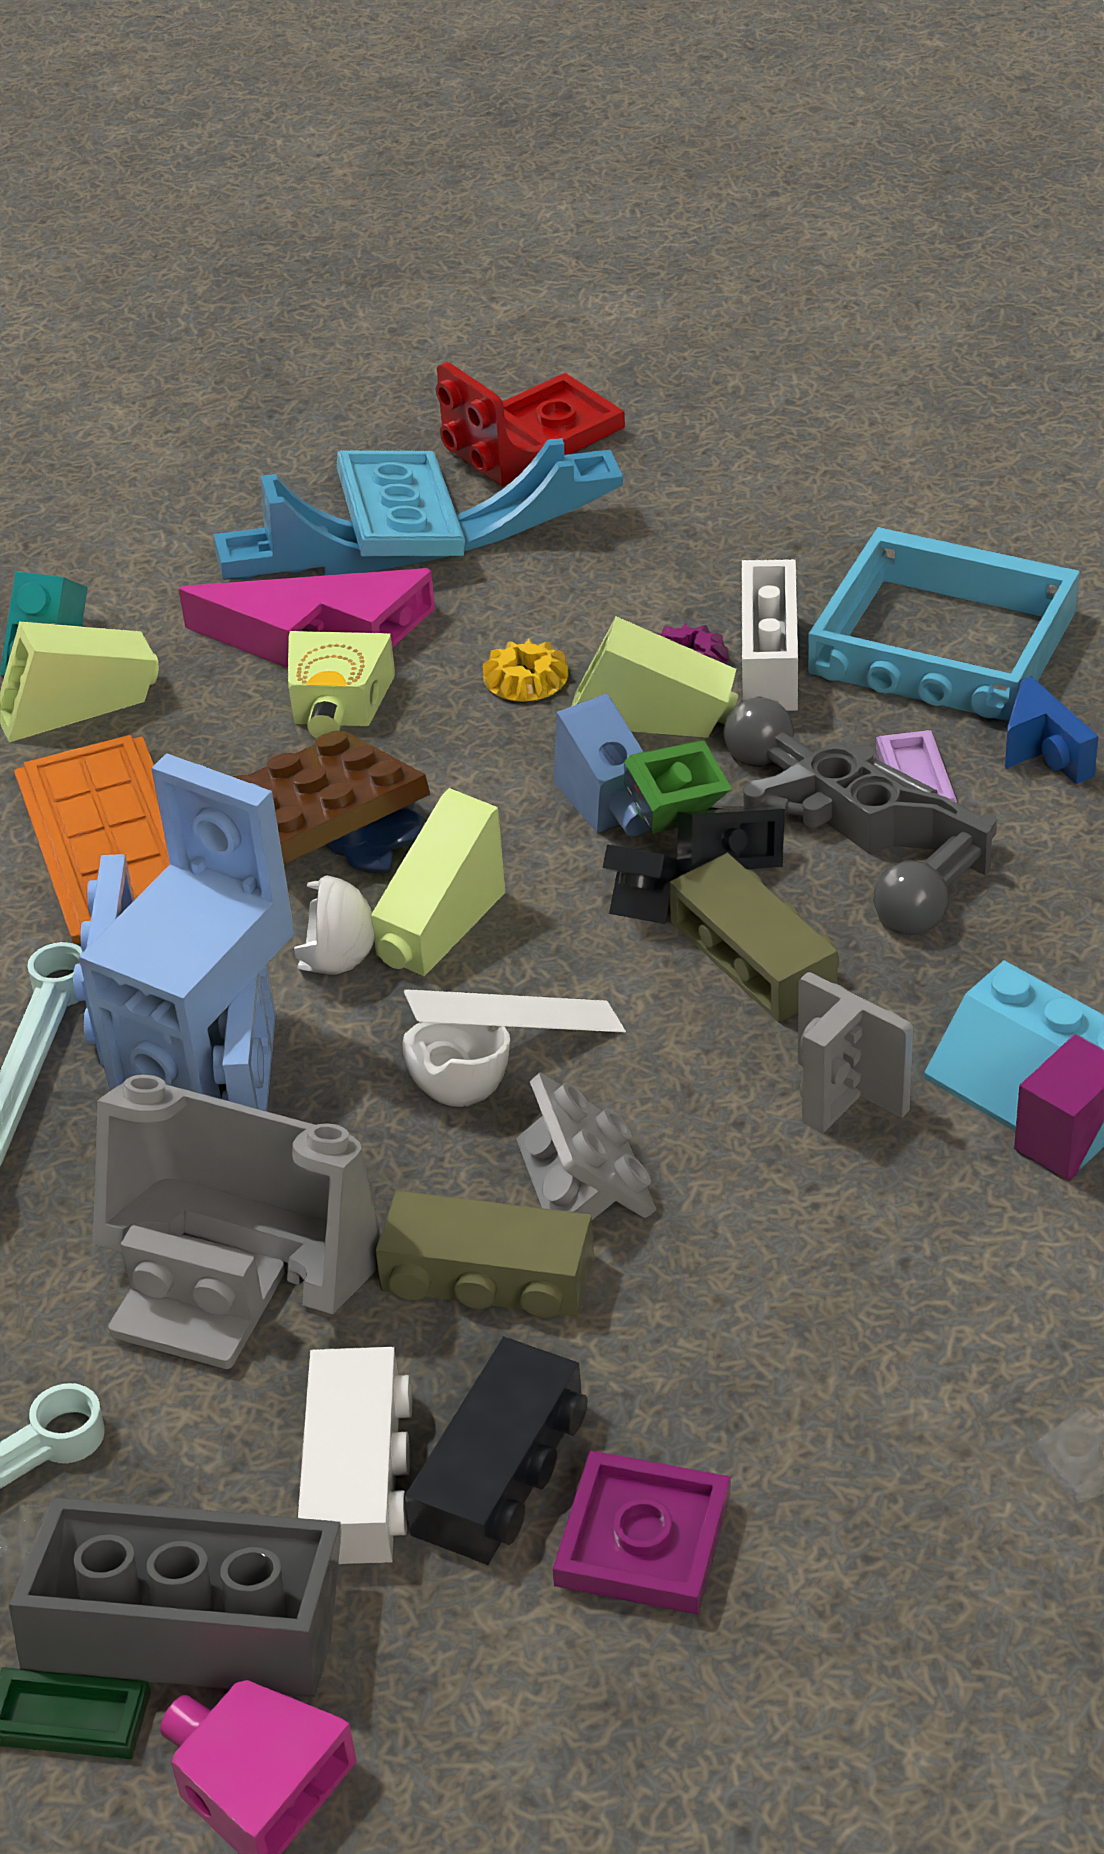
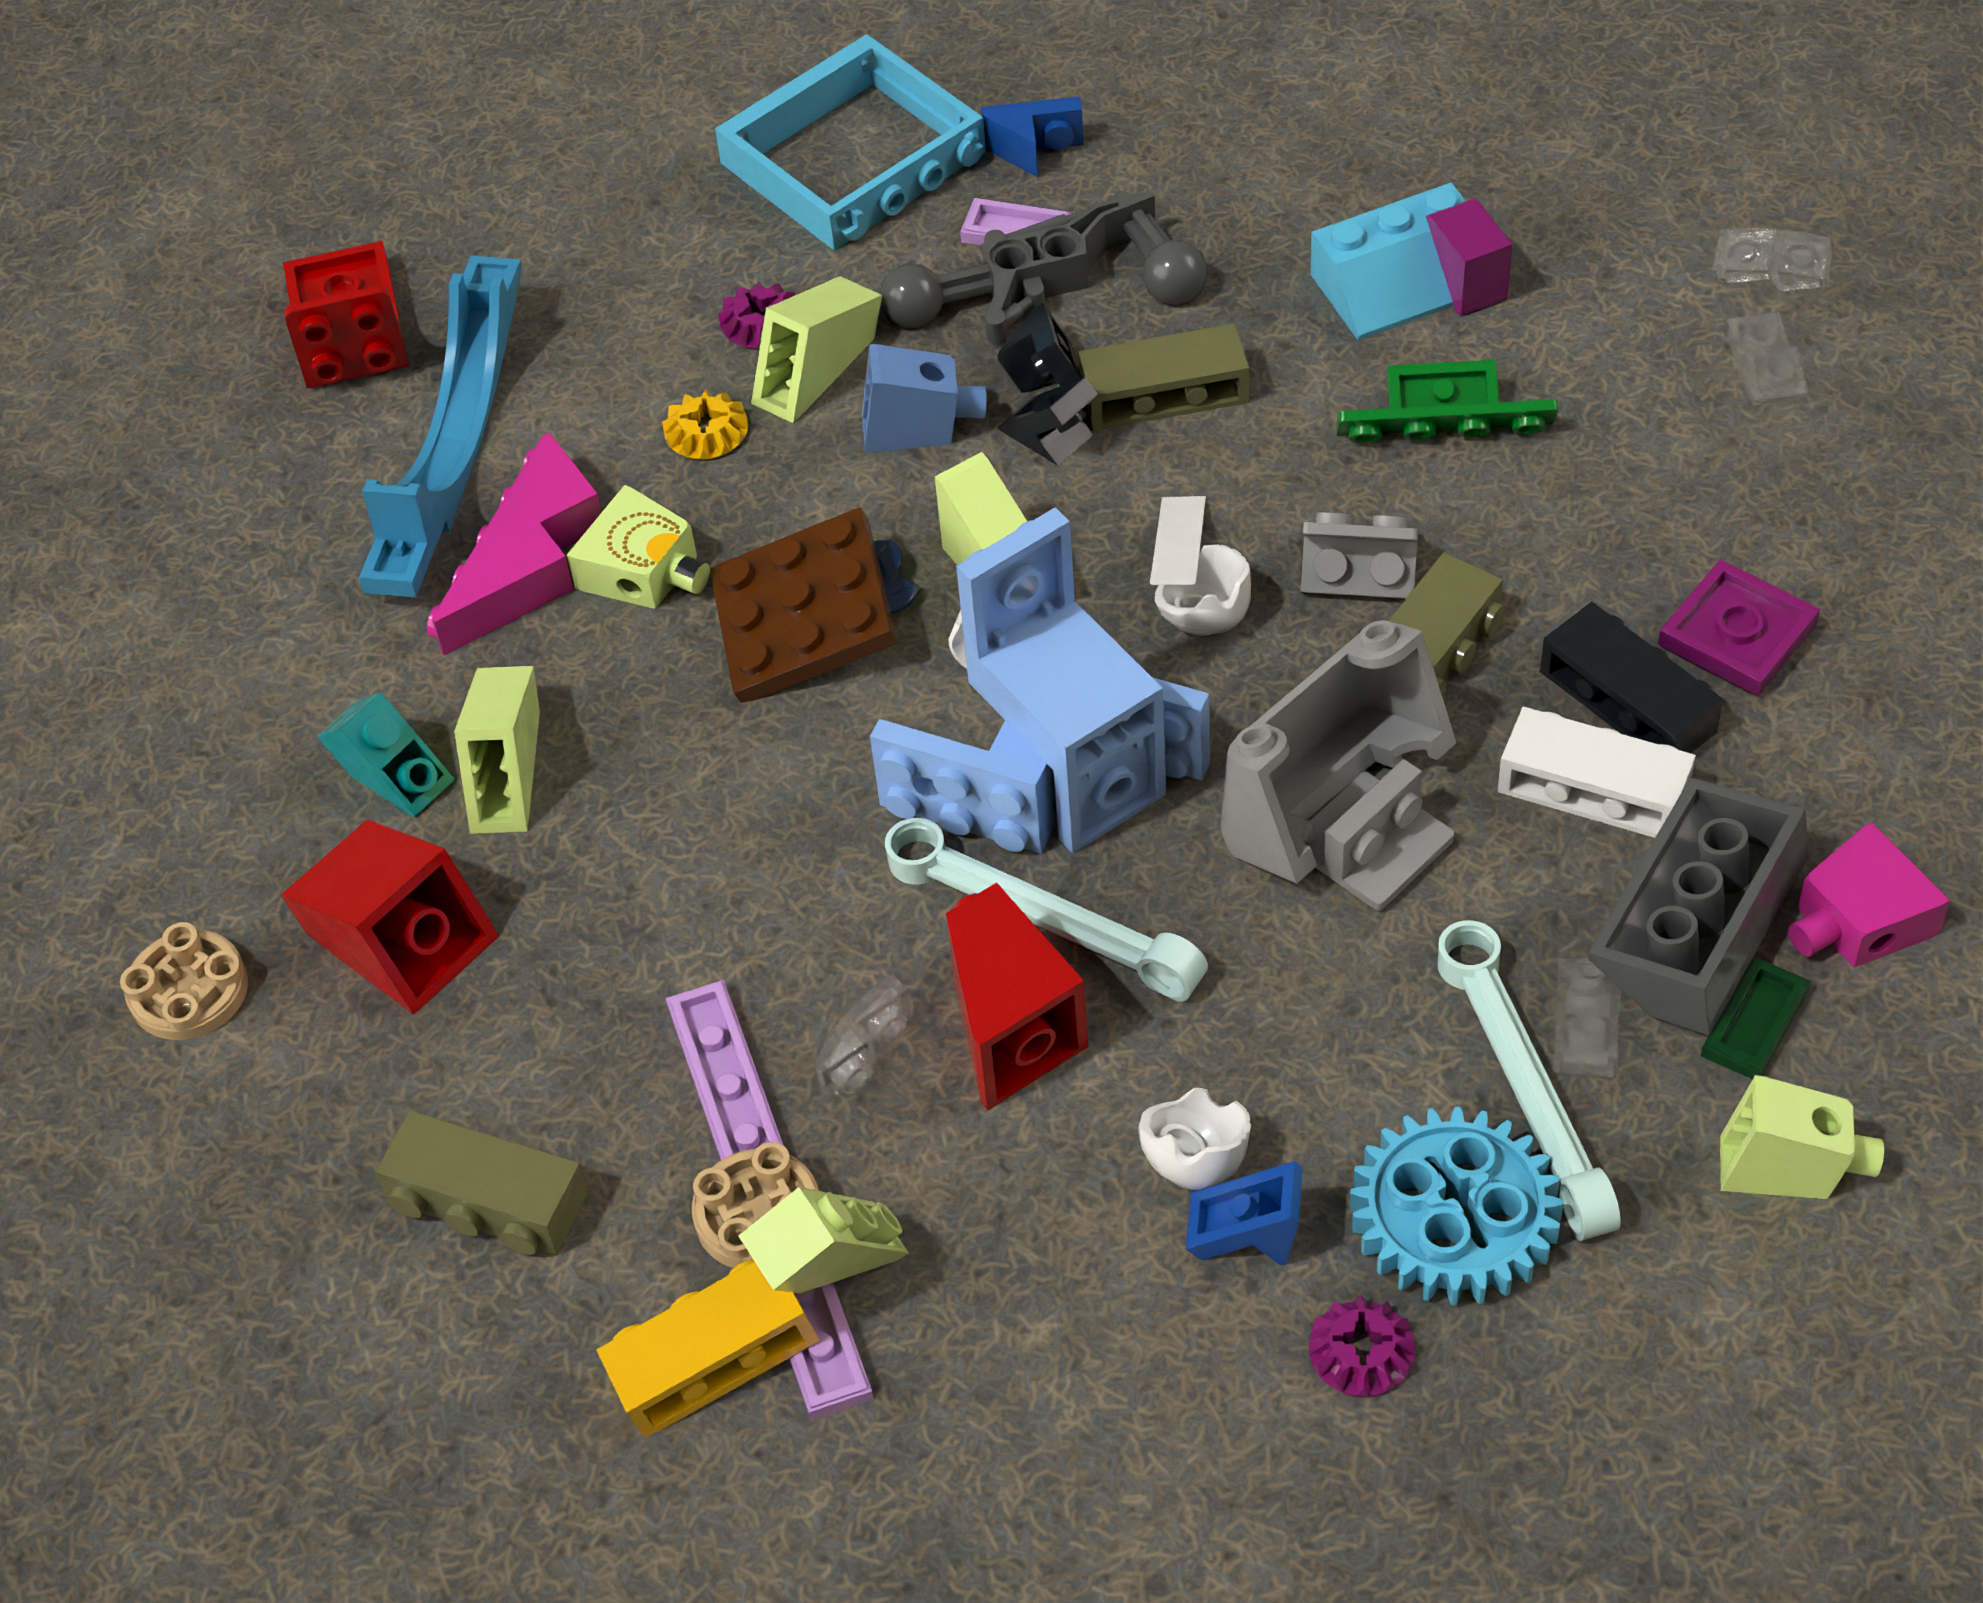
camera: 65 degrees left, 10 degrees up
(94, 806) = (737, 777): orange piece -> none
(399, 504) = (399, 436): medium azure tile -> none
(673, 782) = (1004, 349): bright green slope -> none
(770, 631) = (799, 240): white brick -> none
(849, 1053) = (1348, 352): light grey bracket -> none
(855, 1161) = (1444, 398): none -> green bracket

